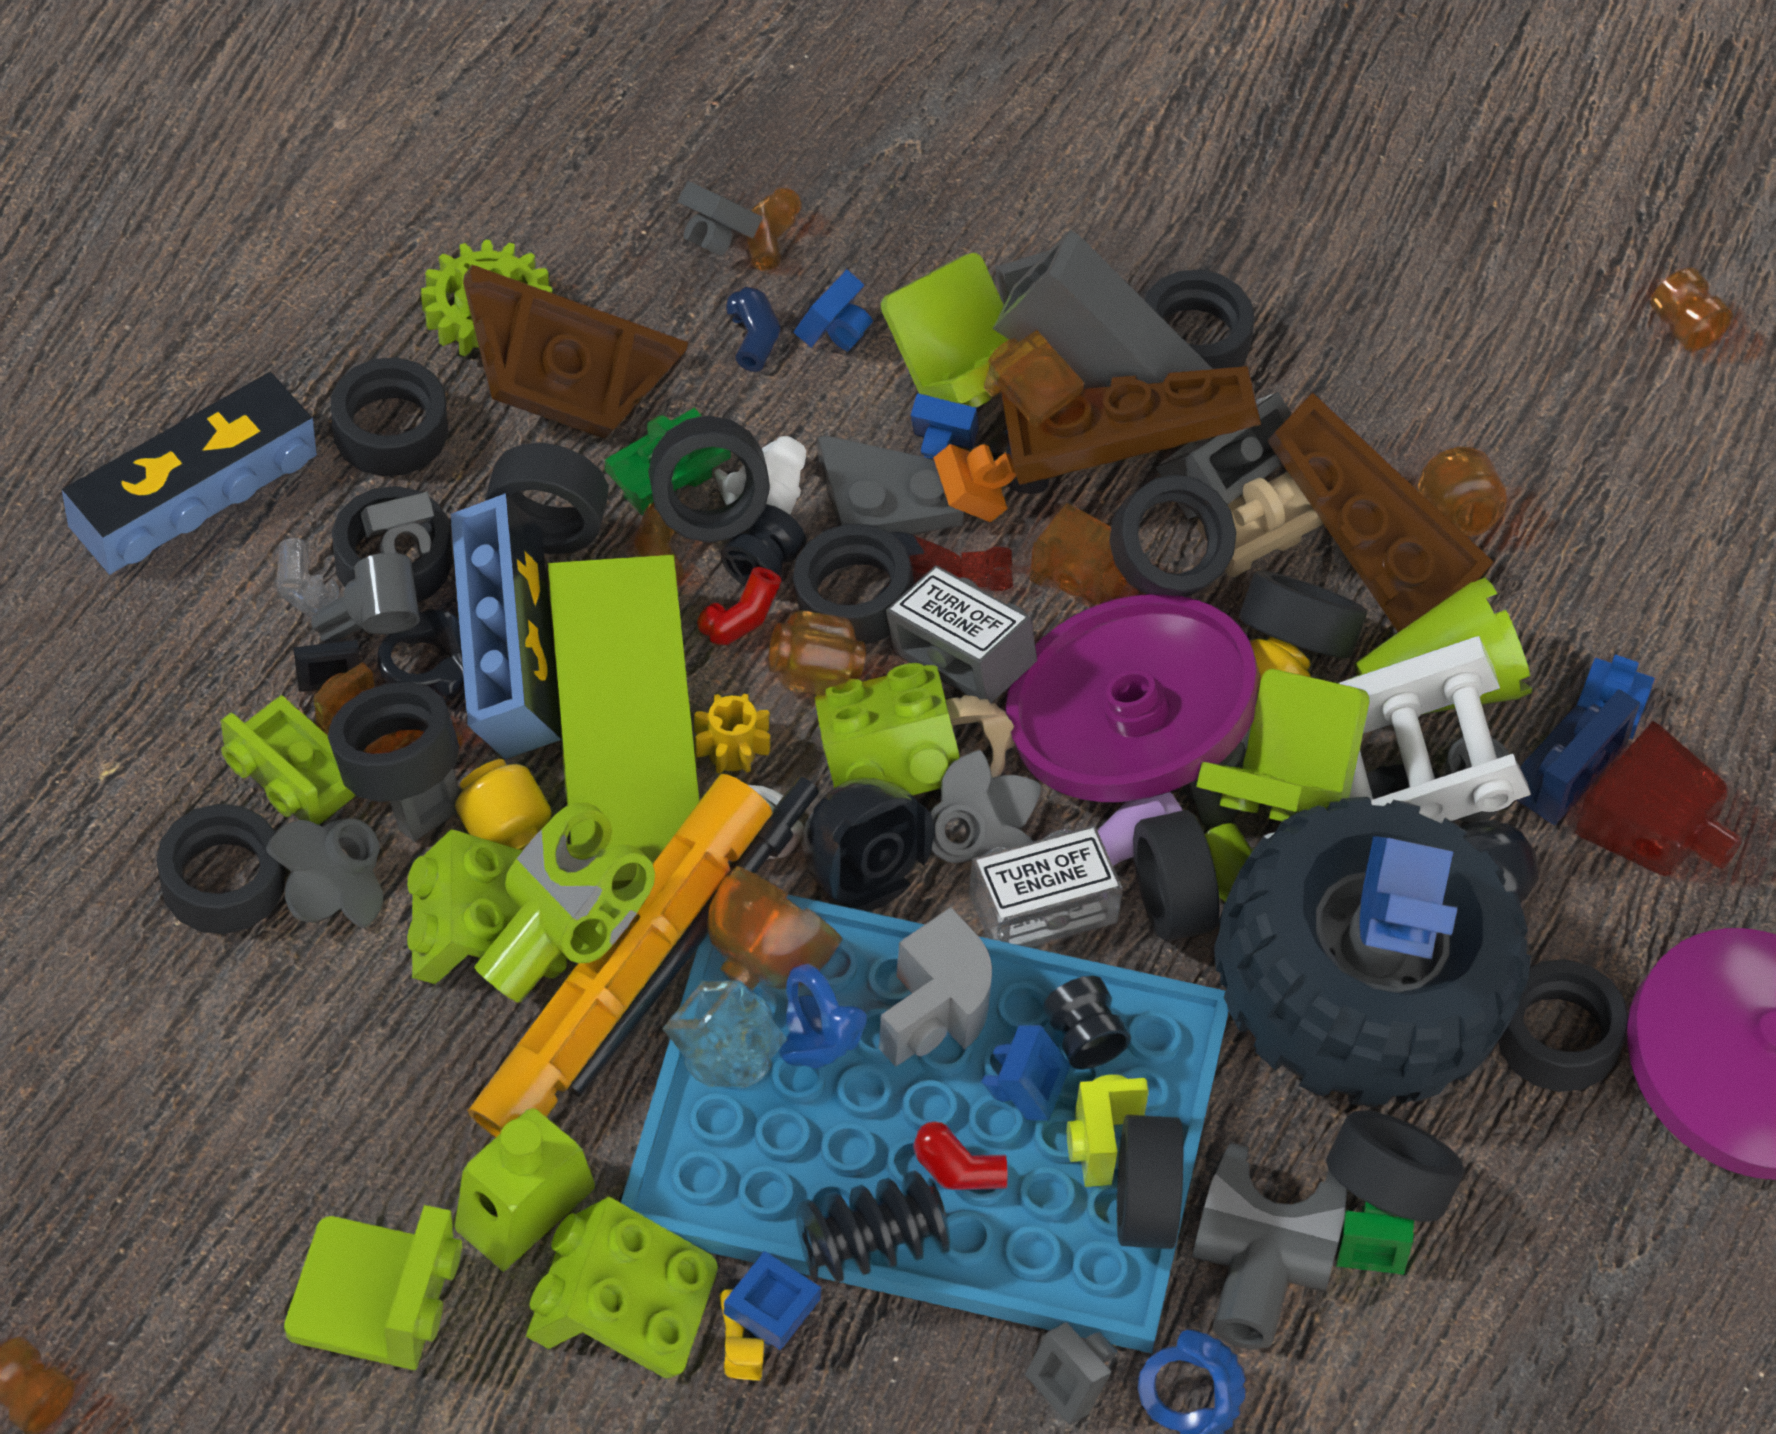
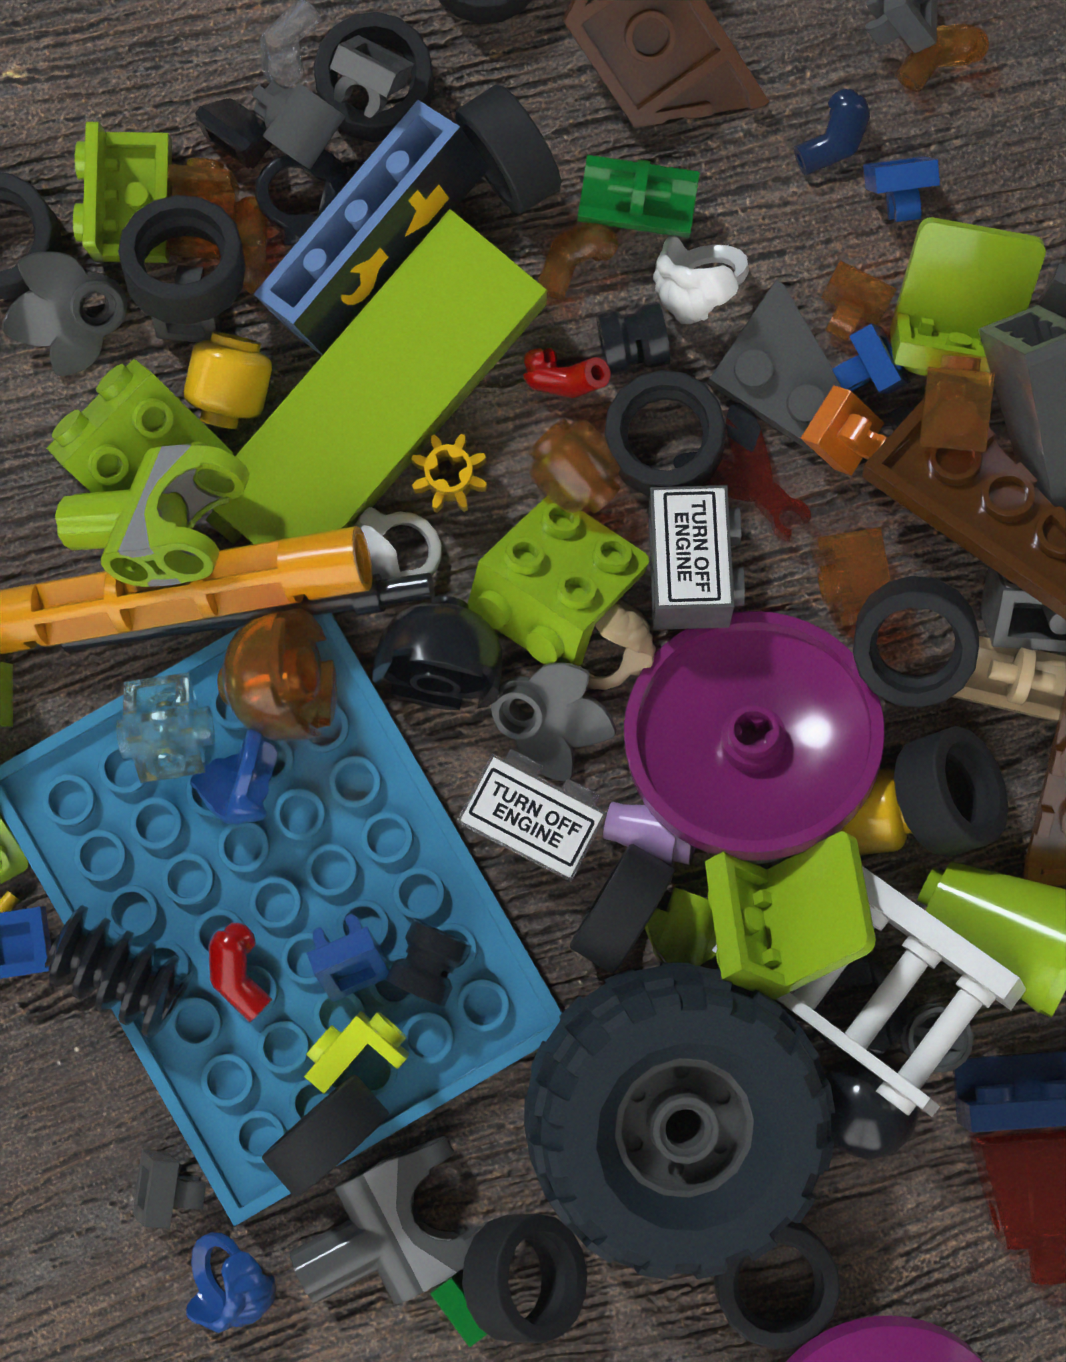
camera: 50 degrees right, 30 degrees up
(717, 523) = (654, 234): black tyre -> none
(884, 401) = (856, 297): none -> clear orange tile
(949, 985) = (373, 837): light grey brick -> none
(1405, 897) = (691, 1152): brick -> none

